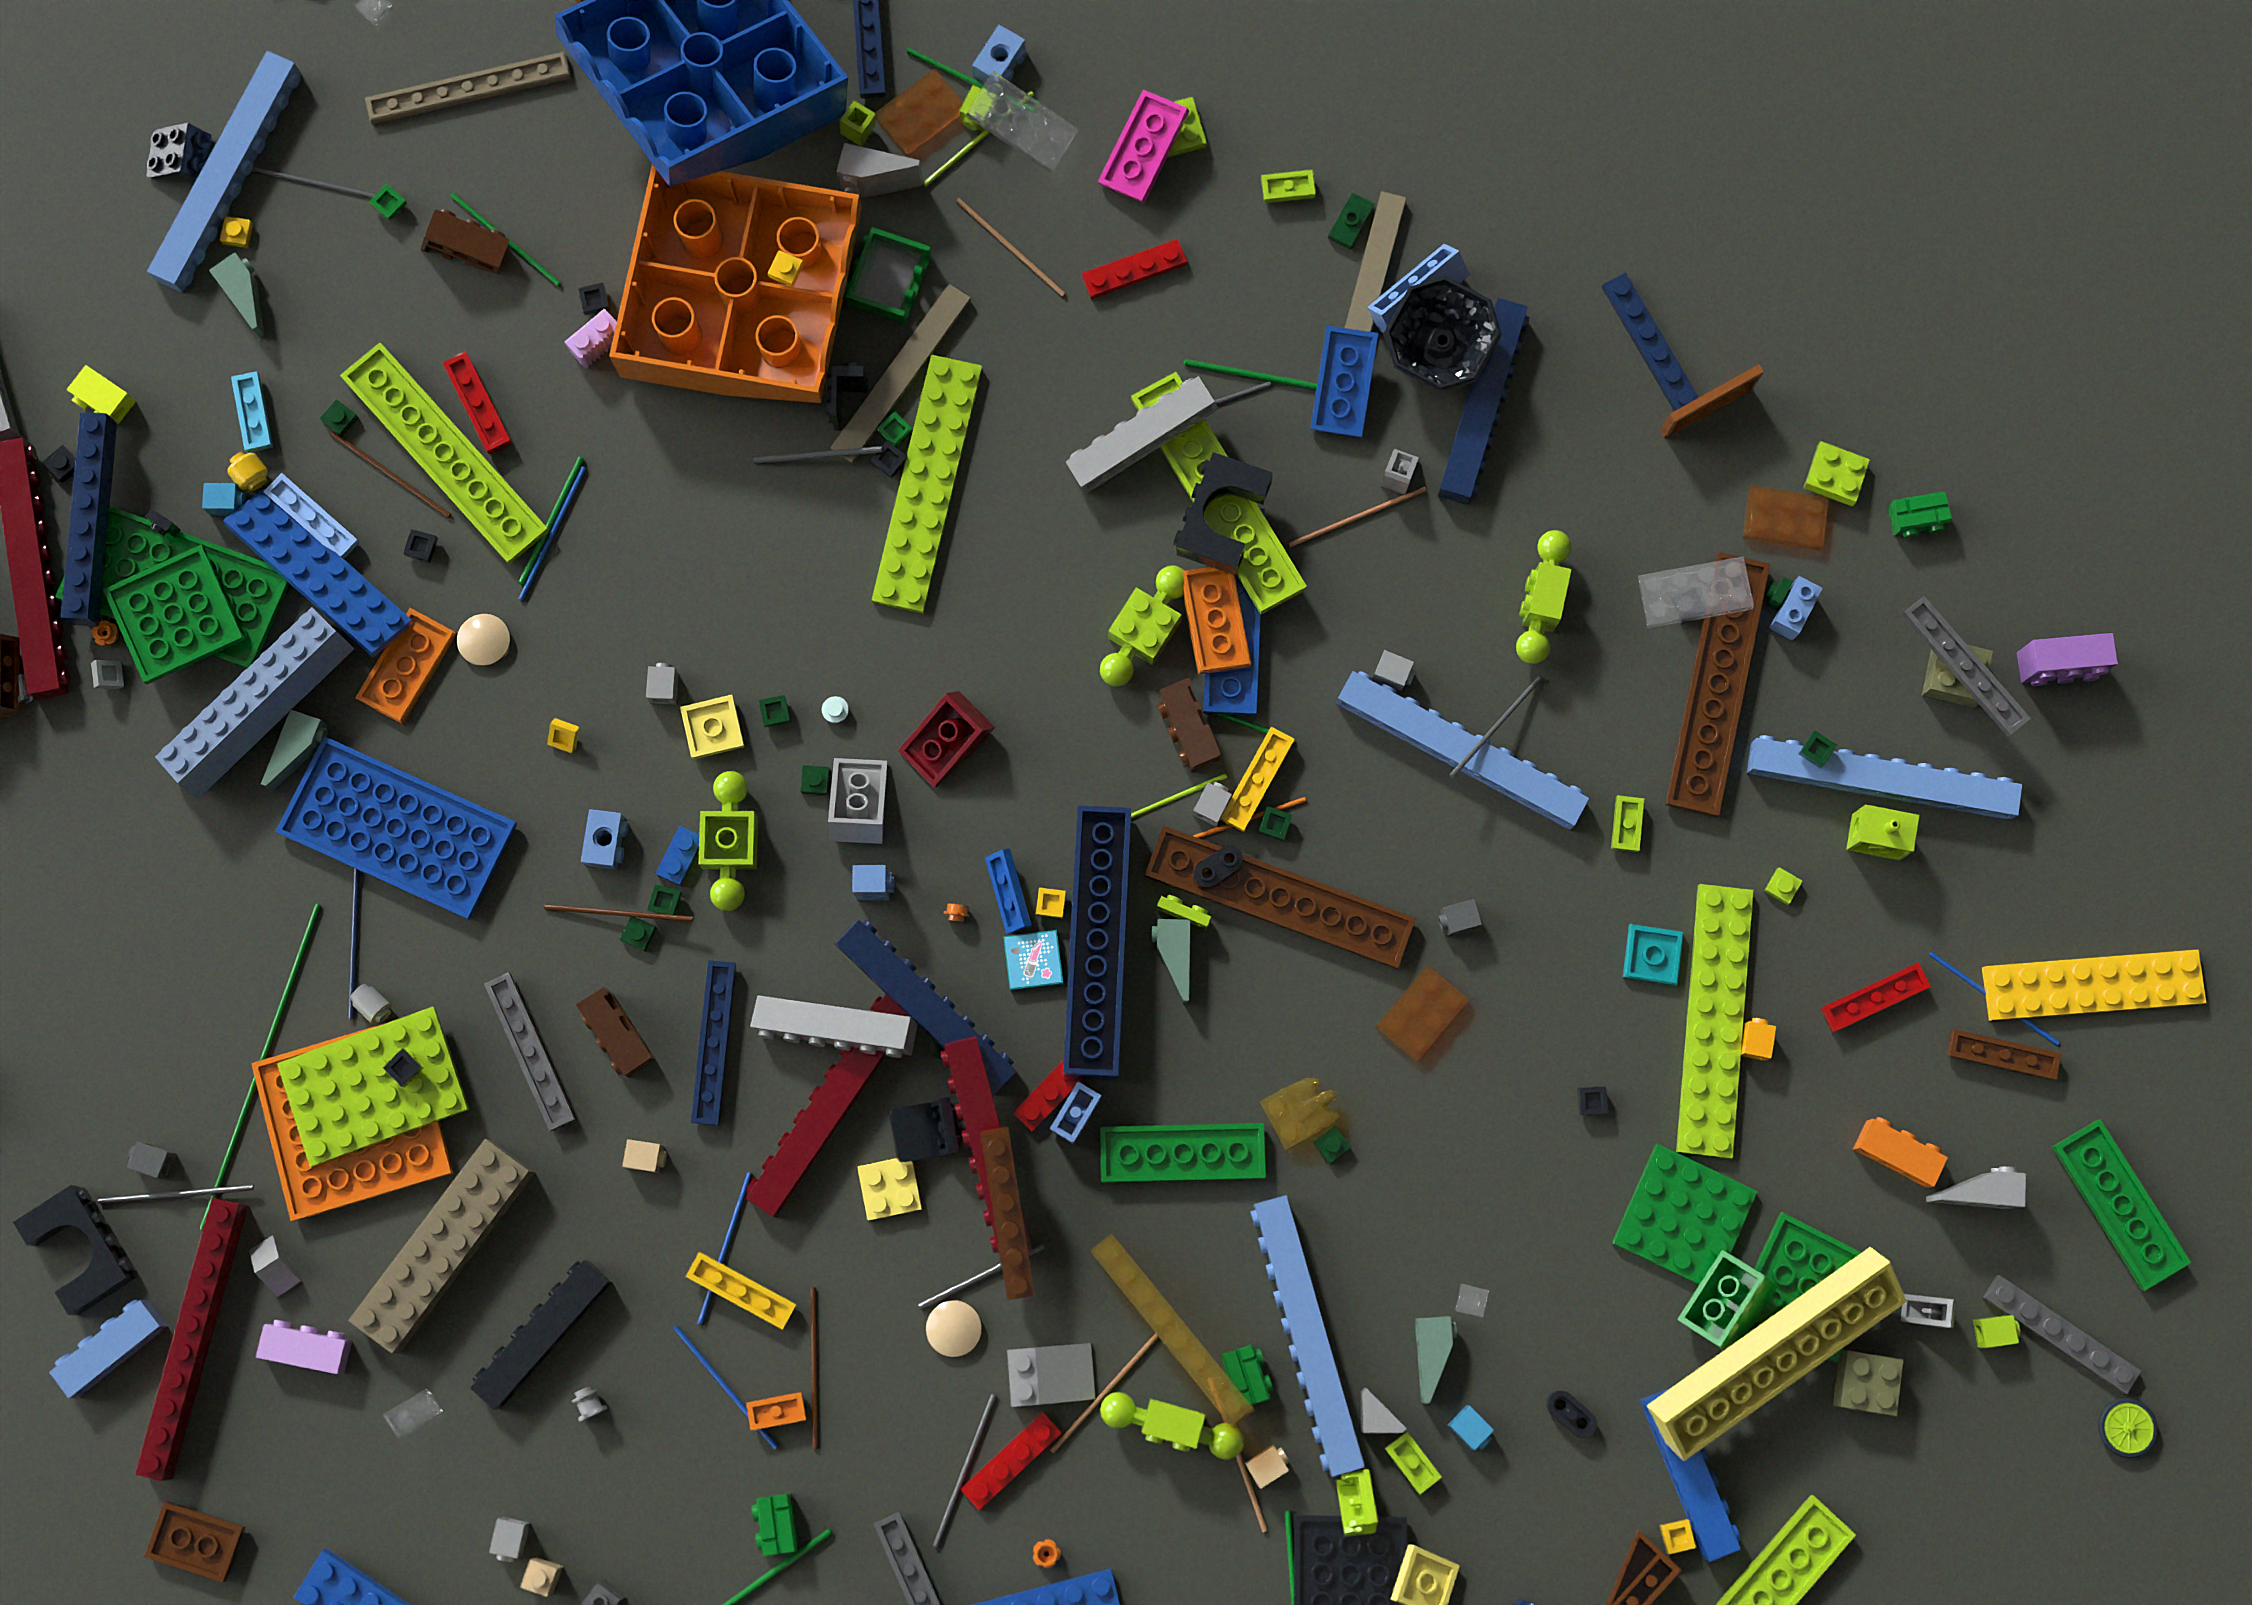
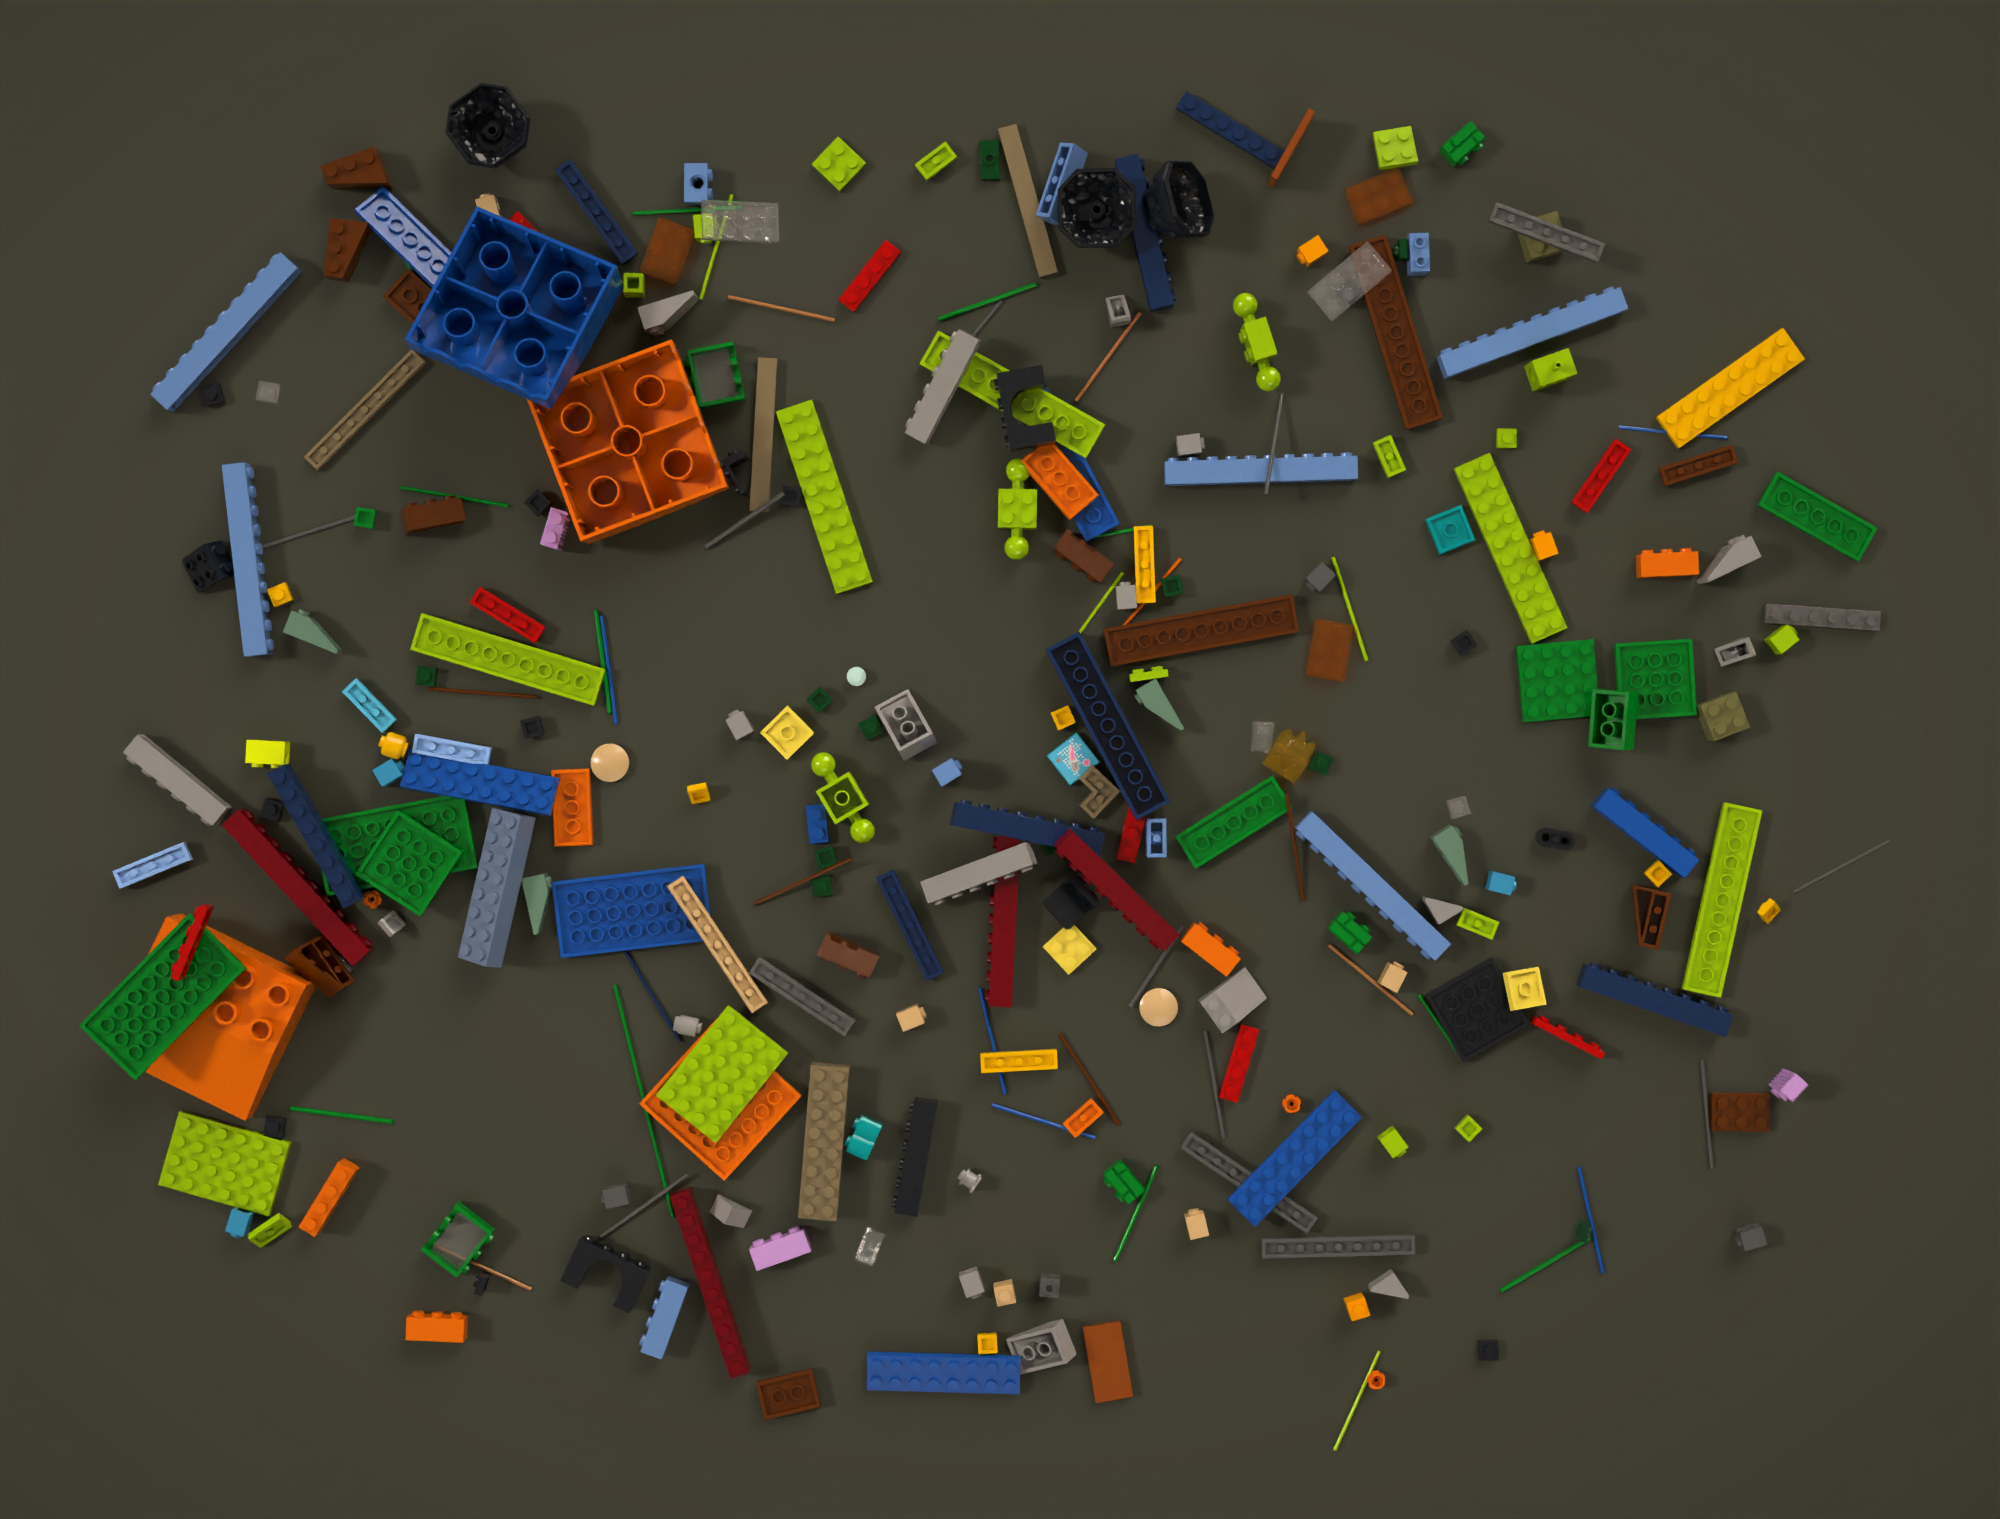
camera: 25 degrees left, 10 degrees up
(162, 524) = (364, 812): black plate -> none
(403, 1067) = (735, 1053): black plate -> none
(468, 926) = (717, 944): none -> tan tile
(493, 1270) = (863, 1137): none -> teal brick
(599, 824) = (765, 854): medium blue brick -> none
(785, 268) = (656, 417): yellow plate -> none
(895, 429) = (782, 474): green tile -> none
(946, 737) = (936, 653): dark red slope -> none
(957, 912) = (1009, 757): orange plate -> none
(1007, 1213) = (1153, 923): reddish brown brick -> none
(1008, 891) = (1032, 726): blue plate -> none
(1045, 1015) = (1102, 791): none -> dark tan plate
(1061, 1292) = (1210, 948): none -> orange brick
(1104, 1393) = (1270, 990): medium nougat axle -> none
(1143, 146) = (828, 190): dark pink plate -> none
(1172, 1424) = (1323, 986): lime brick -> none
(1173, 1330) = (1291, 932): clear yellow brick -> none
(1218, 867) = (1152, 634): black plate -> none
(1239, 1229) = (1295, 847): none -> reddish brown axle
(1278, 1067) = (1261, 736): none -> clear slope
(1344, 381) = (1049, 273): blue plate -> none
(1357, 1503) = (1458, 967): lime hinge -> none
(1475, 978) = (1349, 608): none -> lime axle
(1544, 383) = (1179, 201): none -> black rock
(1670, 533) = (1311, 251): none -> light orange brick
(1777, 1353) = (1660, 733): light yellow brick -> none
(1817, 749) = (1482, 341): dark green plate -> none
(2067, 659) = (1606, 188): medium lavender brick -> none
(2128, 1428) = (1890, 650): lime wheel -> none

